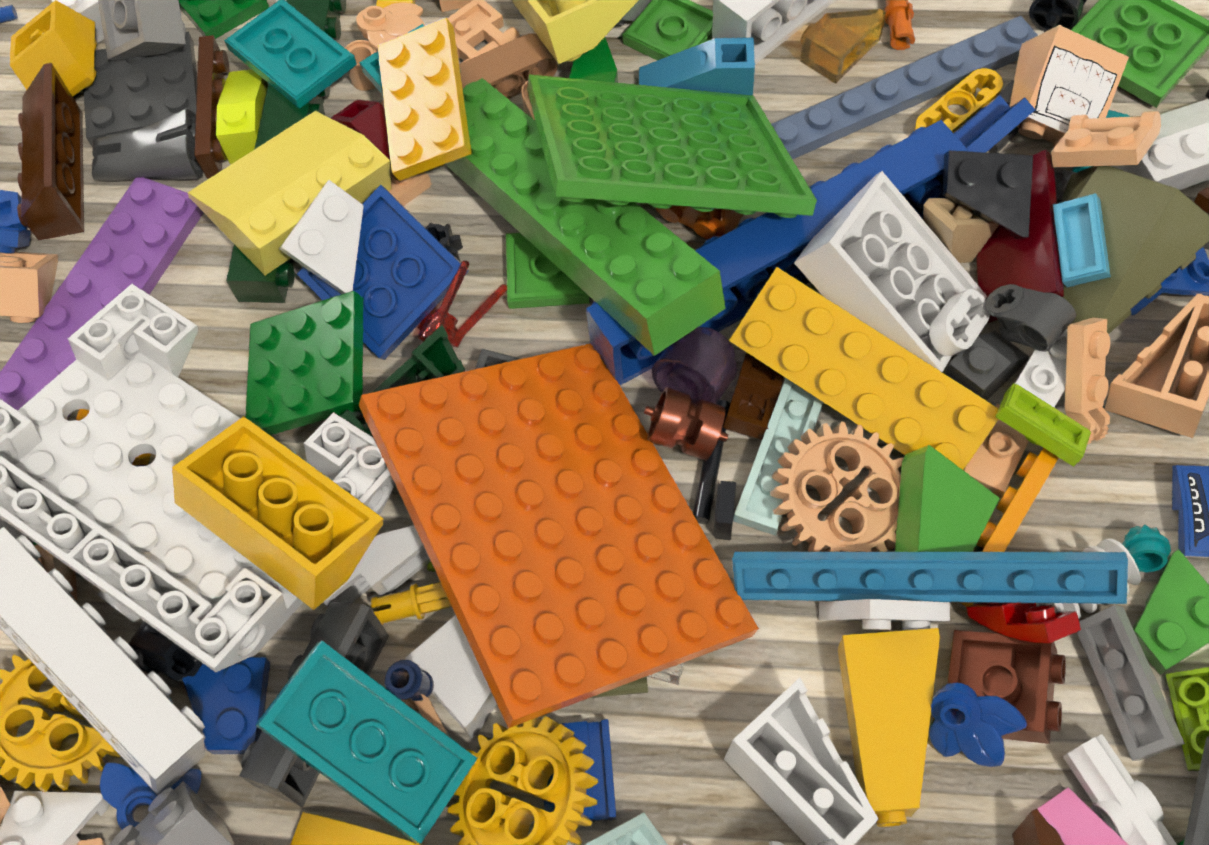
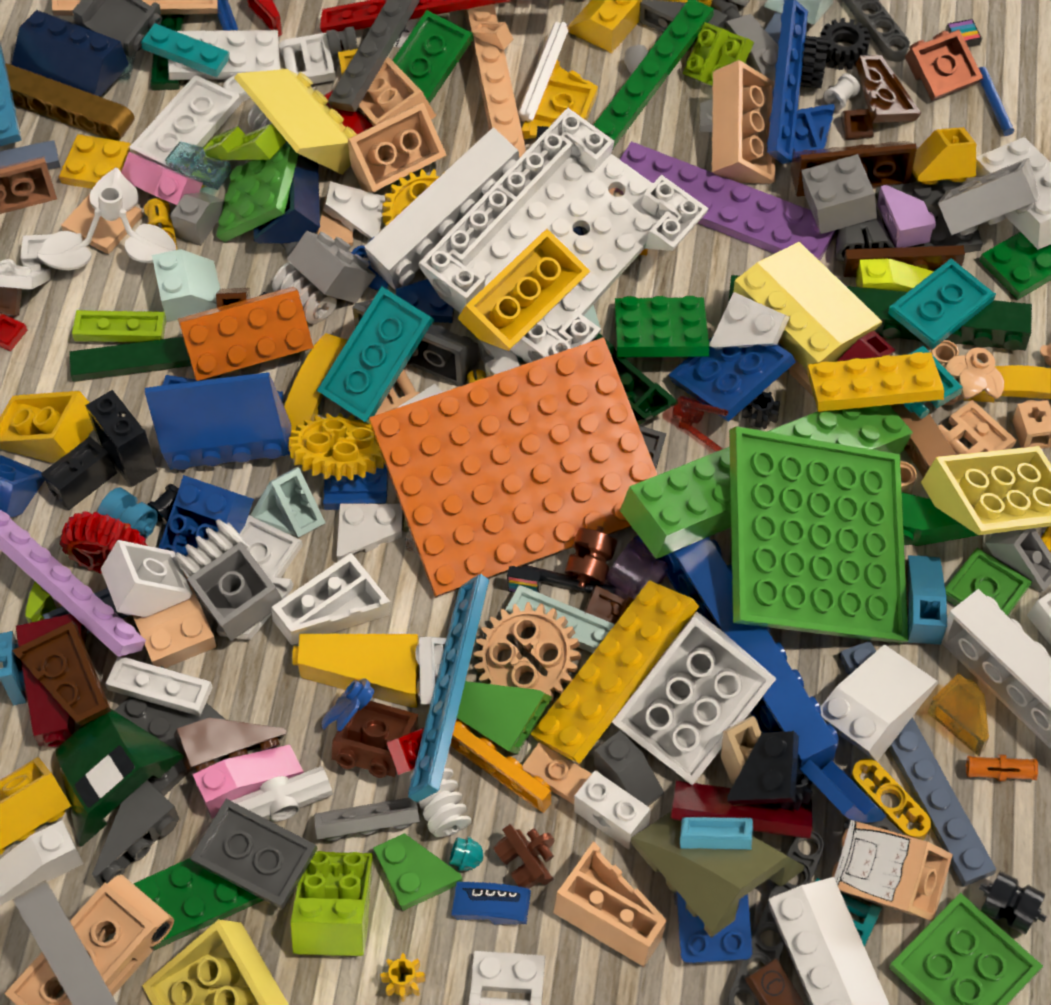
camera: 90 degrees right, 5 degrees down
(107, 156) = (839, 194): none -> light grey brick
(148, 93) = (905, 217): none -> lavender slope
(408, 681) = (412, 373): dark blue pin -> none
(649, 746) = (367, 527): none -> white wing
(853, 104) = (877, 701): none -> white slope
(959, 322) = (648, 746): white beam -> none
(1030, 315) = (650, 785): dark grey piece -> none
(1043, 424) = (560, 783): lime plate -> none
(1085, 375) = (600, 823): light nougat hinge -> none
(1106, 140) = (801, 861): light nougat plate -> none
(1127, 466) = (516, 845): none -> copper hips

